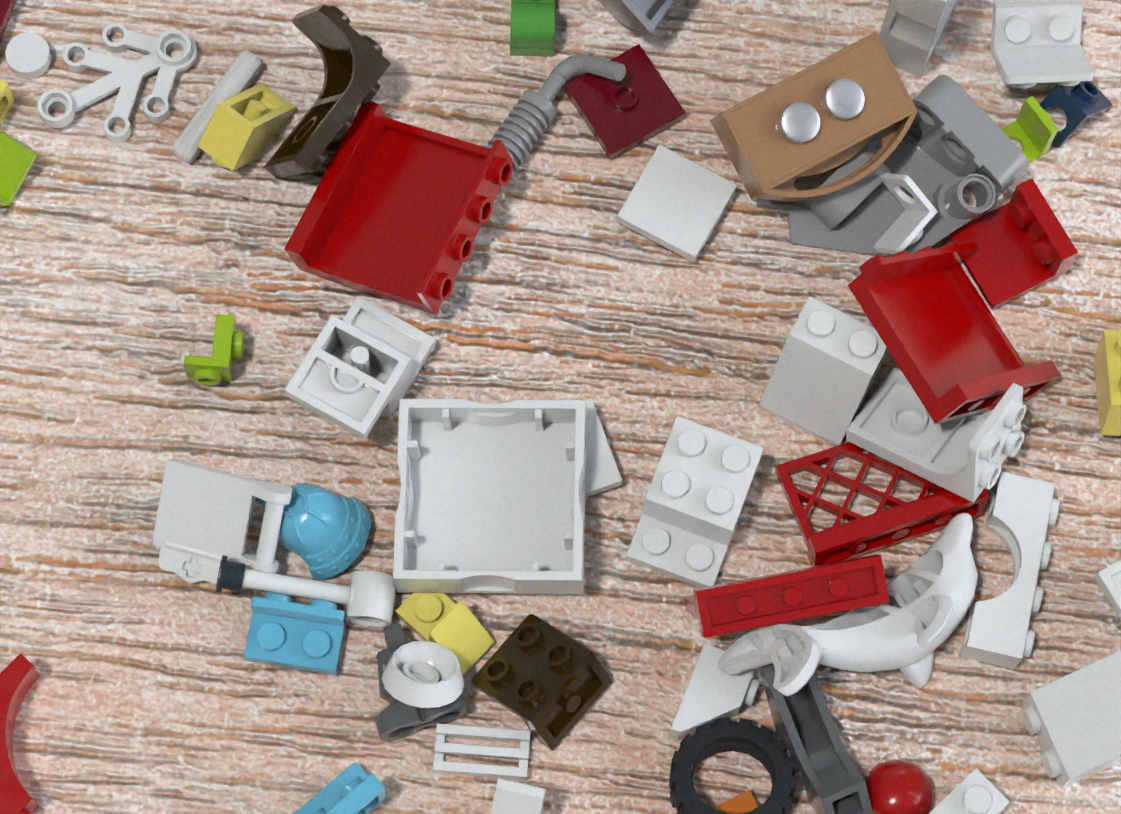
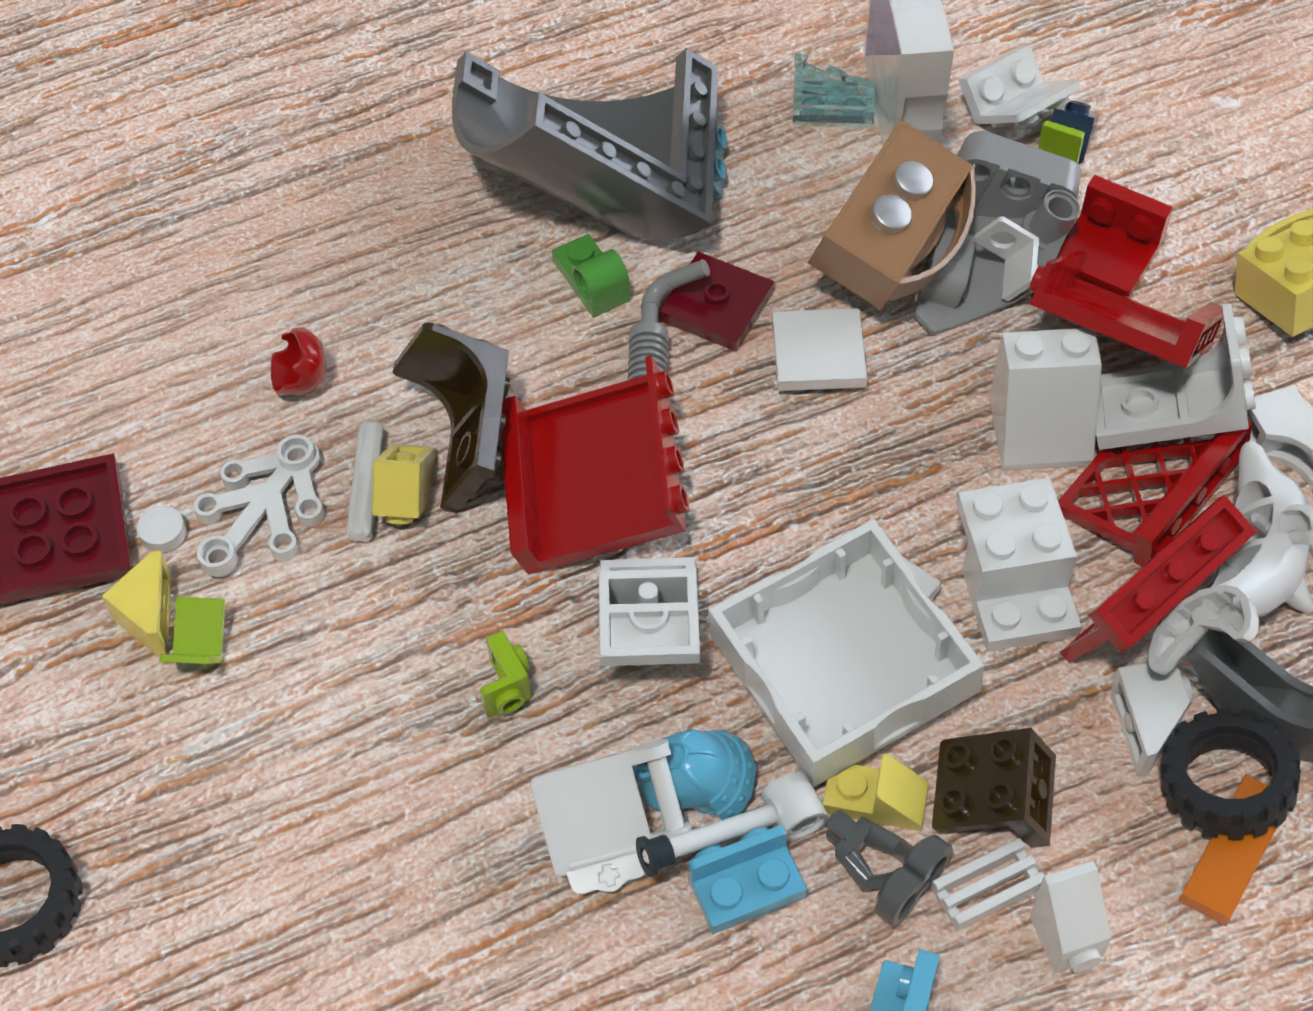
camera: 25 degrees left, 15 degrees down
(423, 675) = (898, 835): white hat -> none

